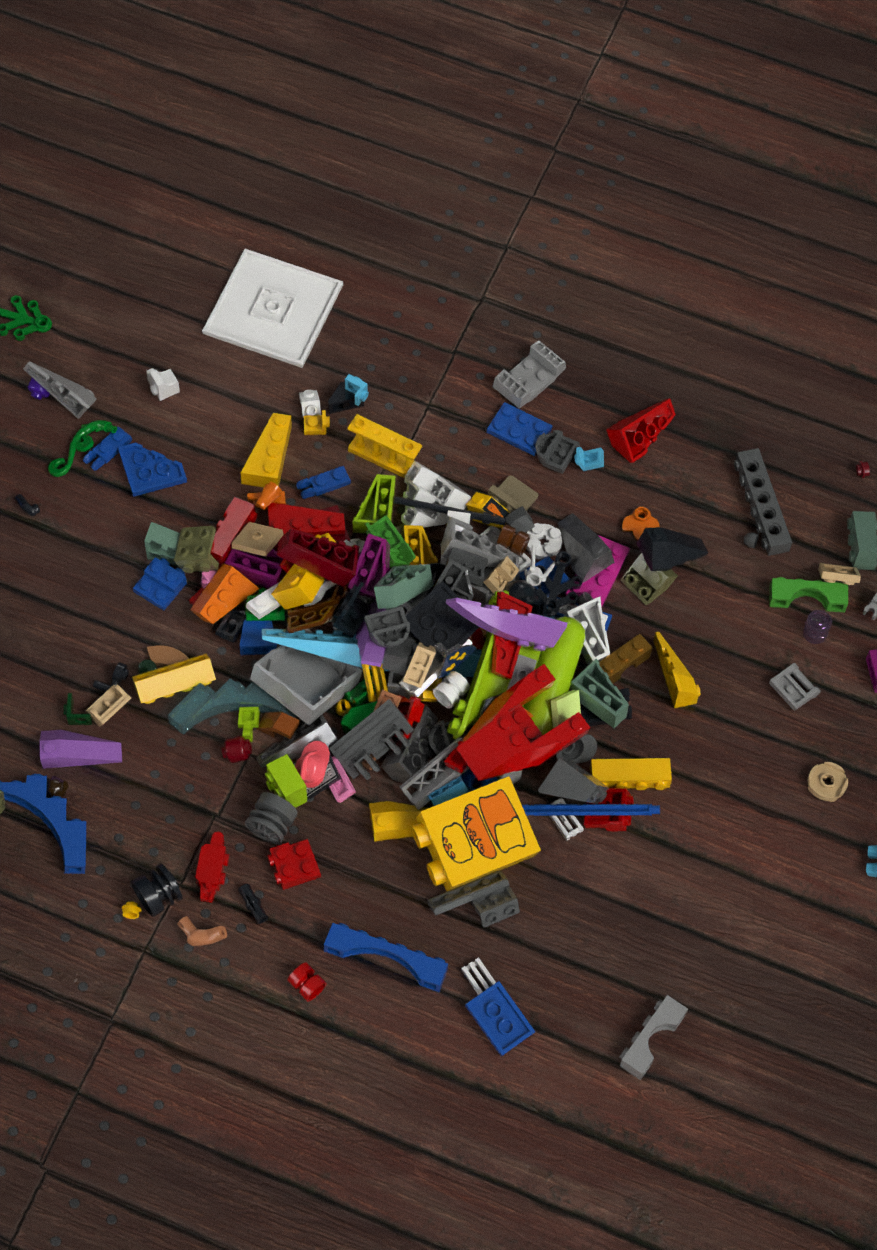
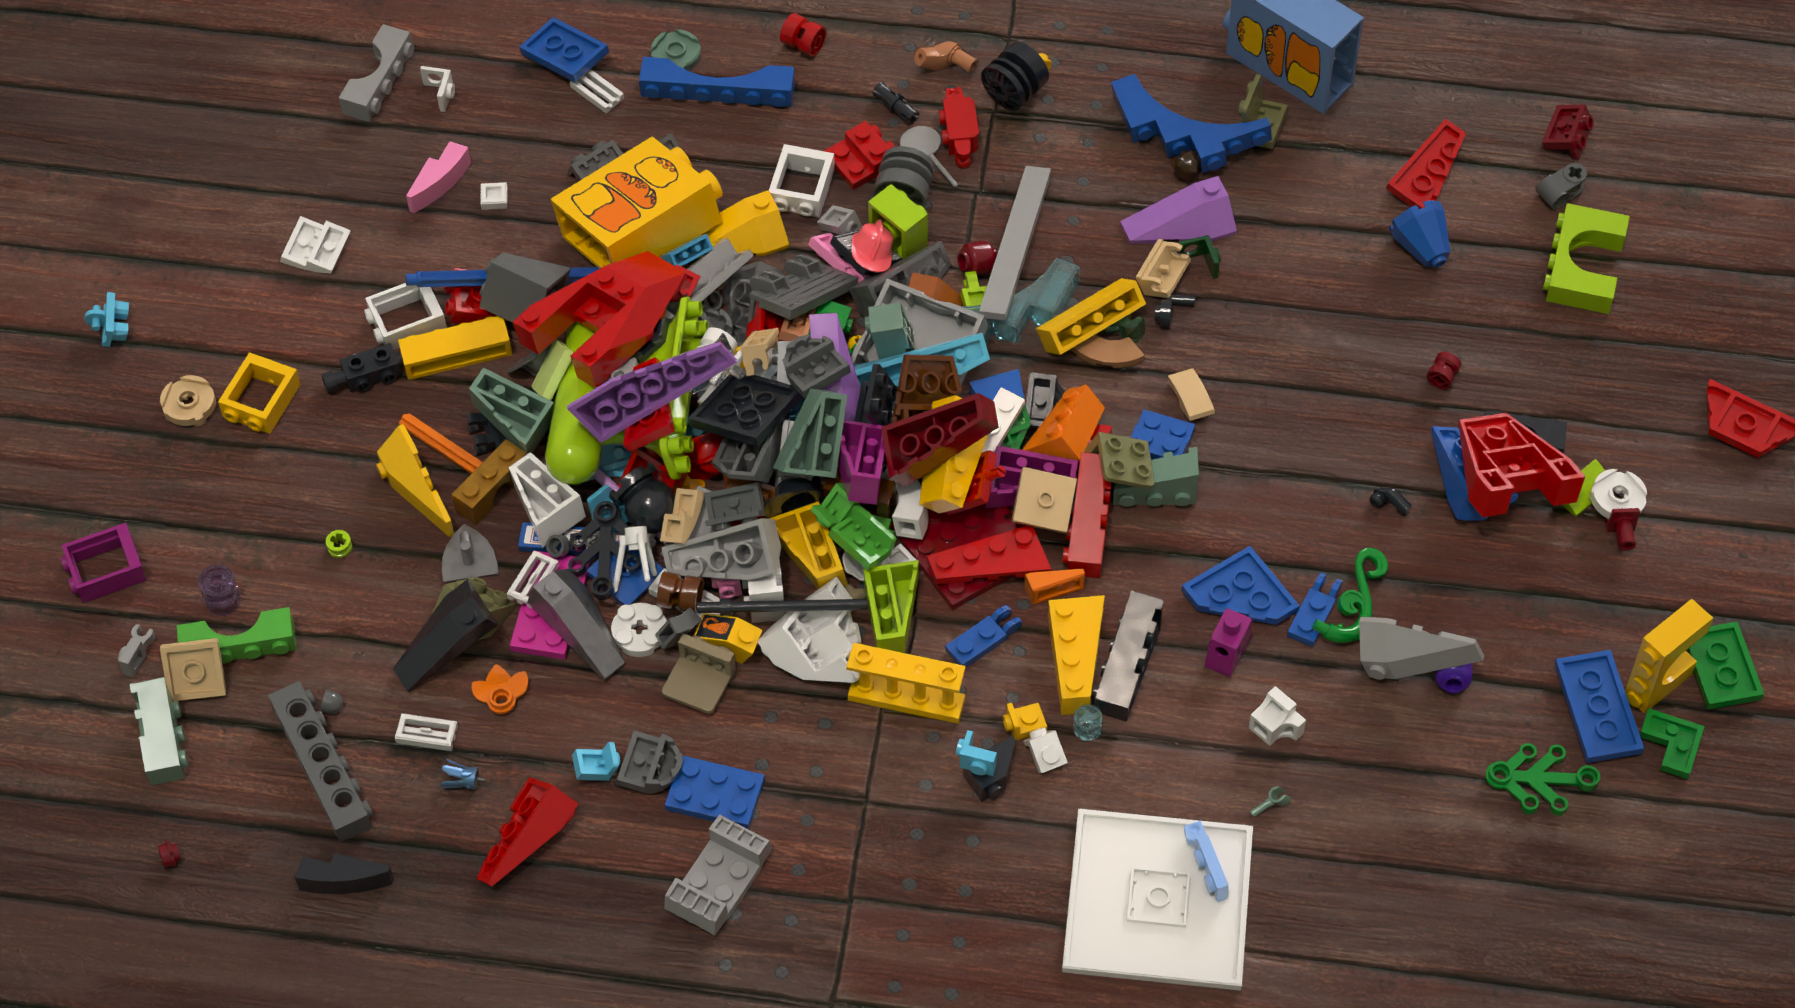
camera: 170 degrees right, 5 degrees down
(126, 610) = (1192, 394): none -> tan slope
(170, 434) = (1233, 635): none -> magenta torso
(182, 341) = (1273, 799): none -> sand green hand
(205, 750) = (1015, 243): none -> light grey tile
(237, 440) = (1128, 656): none -> wedge
(238, 312) = (1207, 858): none -> light blue hinge
(243, 867) = (927, 141): none -> light grey piece
(268, 495) = (1050, 568): orange cone -> none
(277, 407) = (1089, 715): none -> clear light blue wheel
(322, 671) = (890, 329): none -> sand green wedge
(327, 806) = (839, 220): none -> light grey bracket
(337, 866) = (807, 161): none -> white window
(410, 1003) = (679, 47): none -> sand green tile
(579, 903) = (494, 196): none -> white tile
(598, 592) = (535, 556): none -> white tile
(600, 1017) = (446, 84): none -> white bracket
(618, 925) = (438, 176): none -> bright pink slope
(644, 796) = (399, 297): none -> white window
(646, 620) = (468, 556): none -> flat silver shield
(650, 702) = (440, 443): none -> orange axle
(675, 472) = (468, 774): none -> flat silver piece
(690, 511) = (425, 736): none -> white tile
(695, 774) = (365, 369): none -> black brick
(721, 891) = (315, 246): none -> white slope
(732, 642) = (343, 550): none -> lime bush
(757, 429) = (342, 875): none -> black slope
(767, 787) = (267, 371): none -> yellow window
(789, 688) = (249, 503): light grey plate -> none

